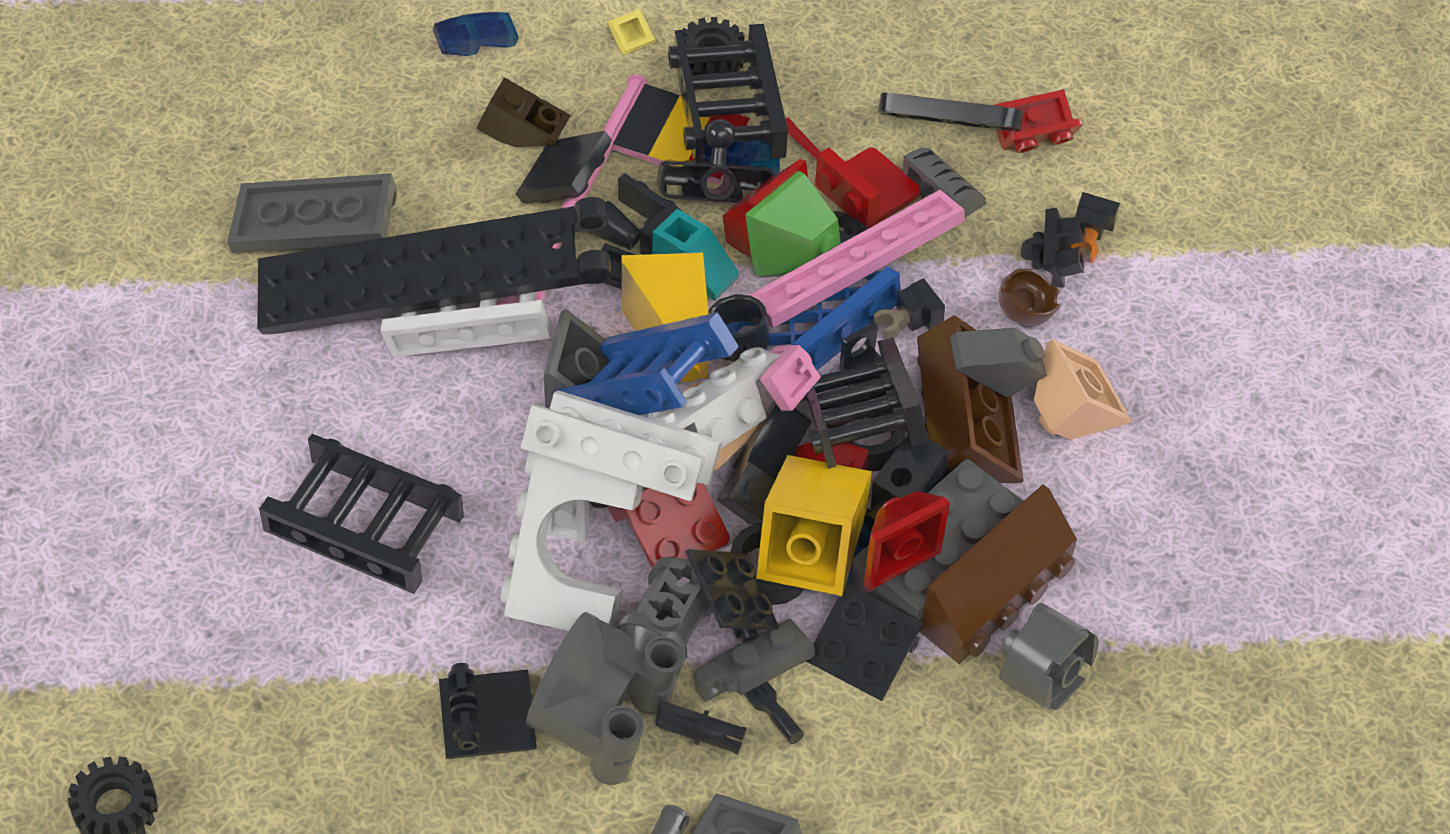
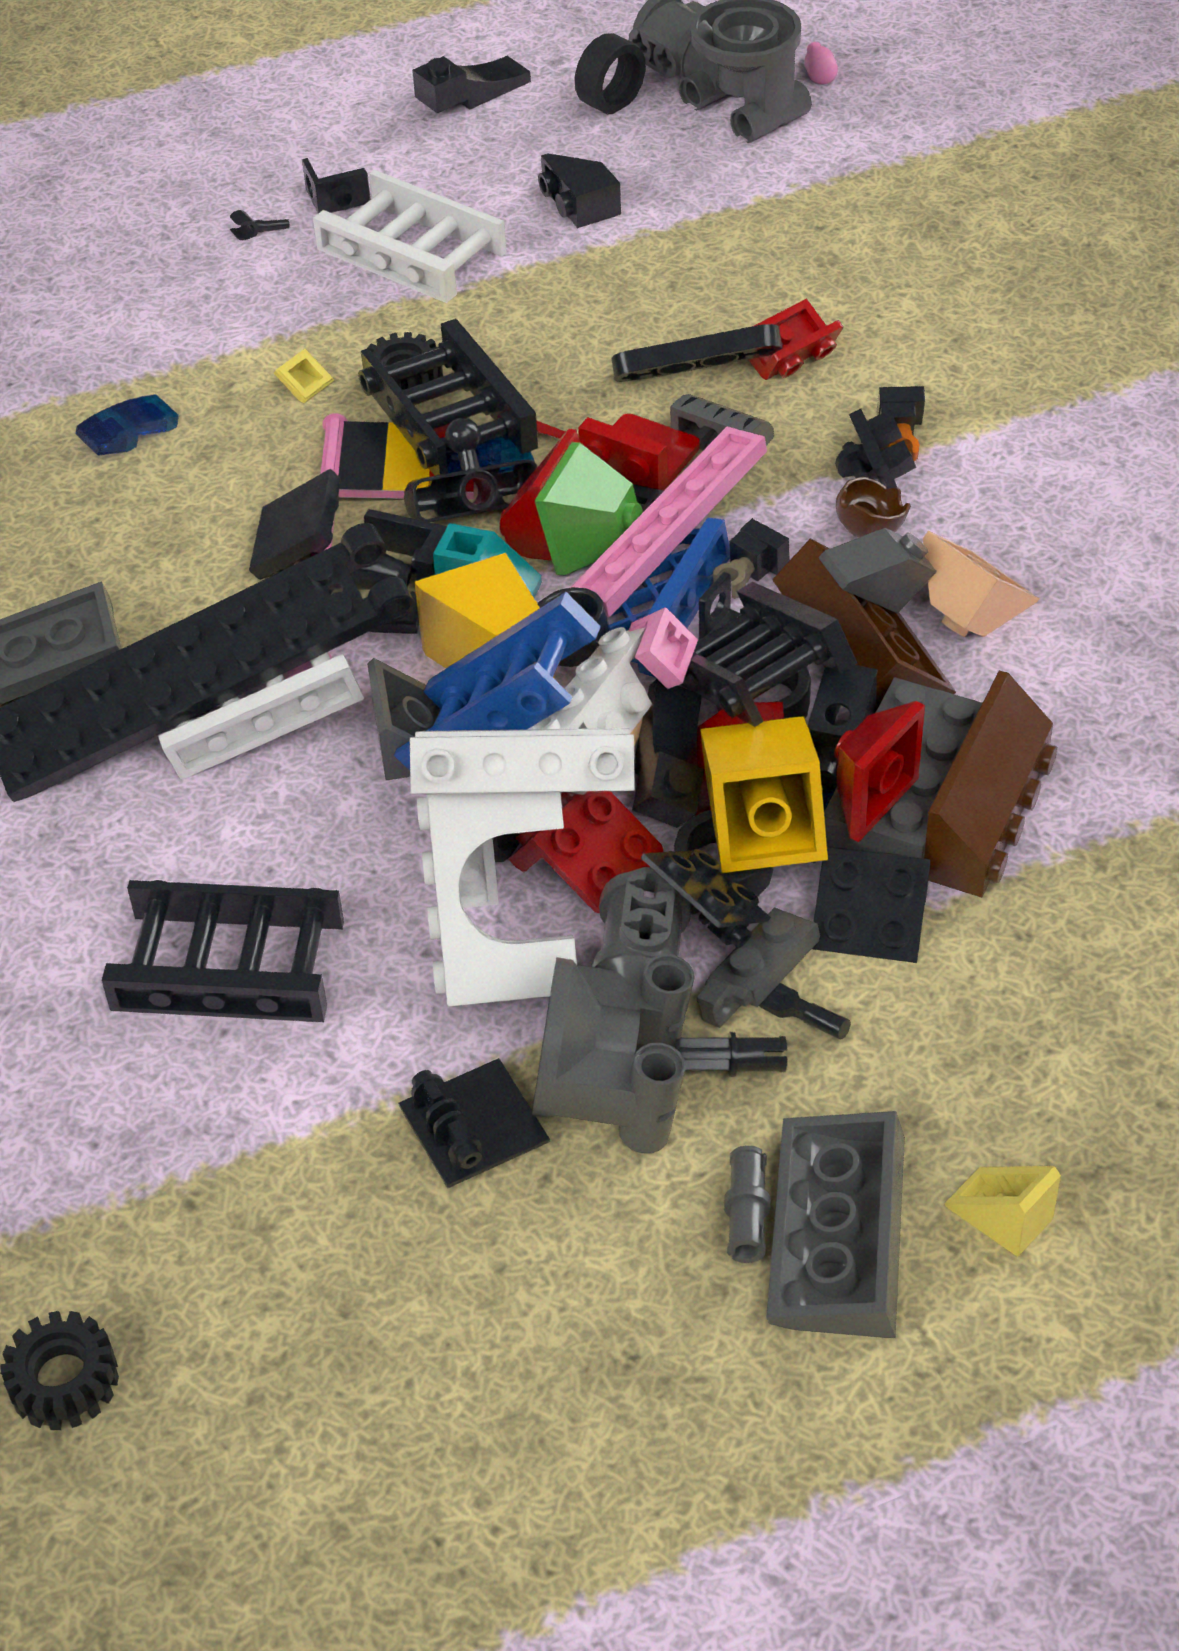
camera: 15 degrees left, 5 degrees down
(521, 117) = (222, 490): dark brown slope -> none
(1047, 657) = (1083, 852): dark grey brick -> none

